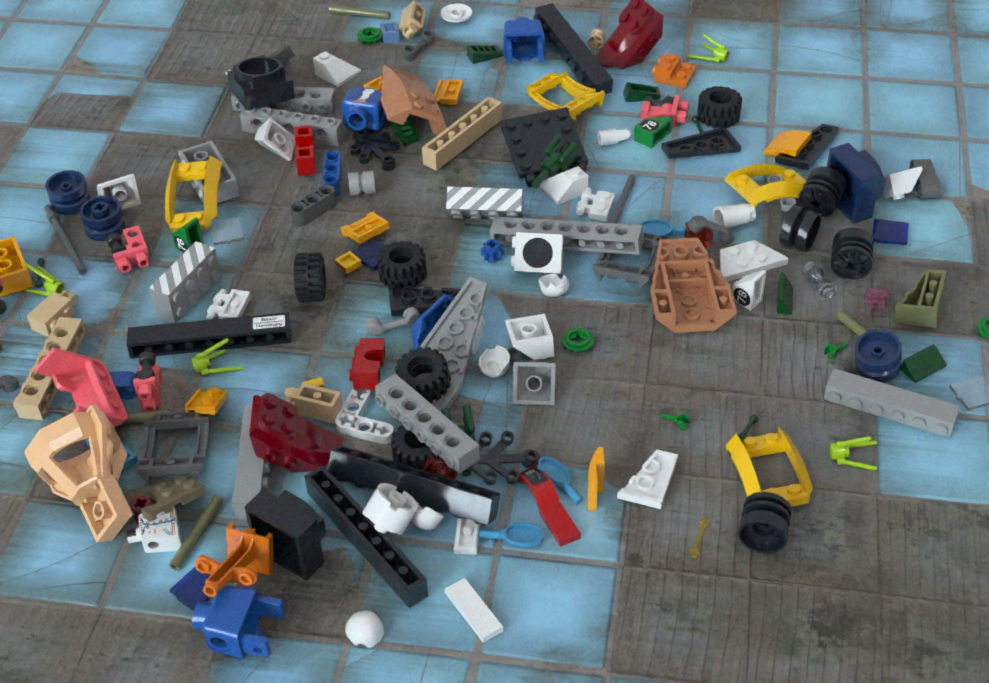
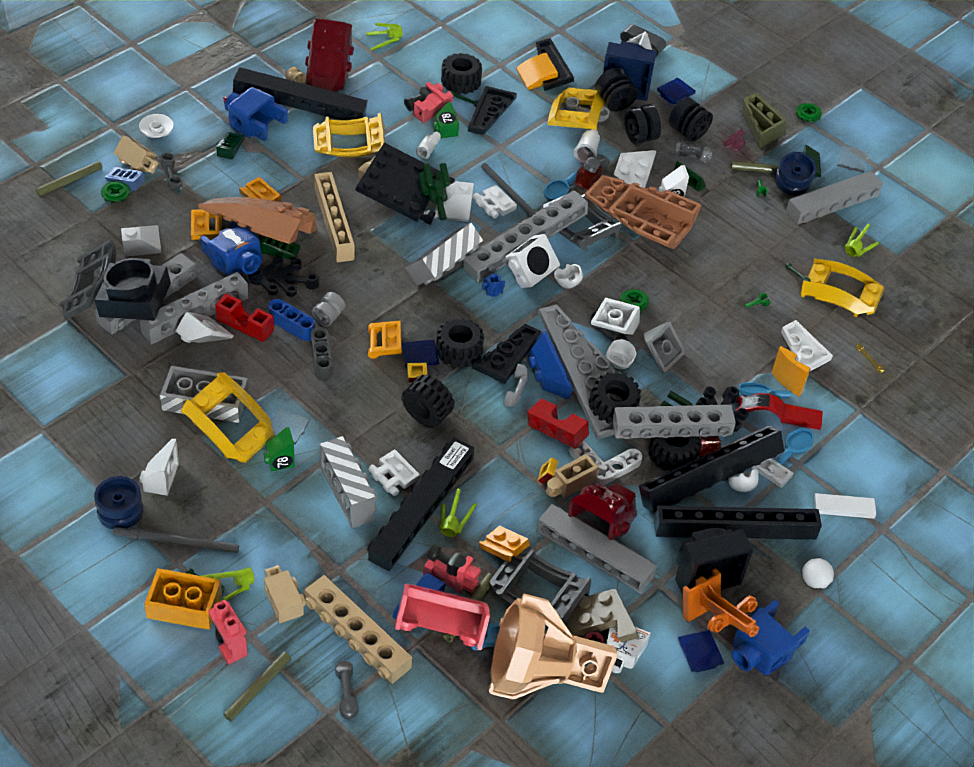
camera: 60 degrees left, 5 degrees up
(102, 217) = (185, 496): dark blue wheel -> none
(131, 254) = (255, 499): coral hips -> none
(195, 533) = (640, 623): olive piece -> none
(390, 509) = (741, 490): white brick -> none
(638, 92) = (389, 99): dark green slope -> none
(673, 71) = (385, 67): orange plate -> none
(765, 522) = (895, 317): black wheel -> none

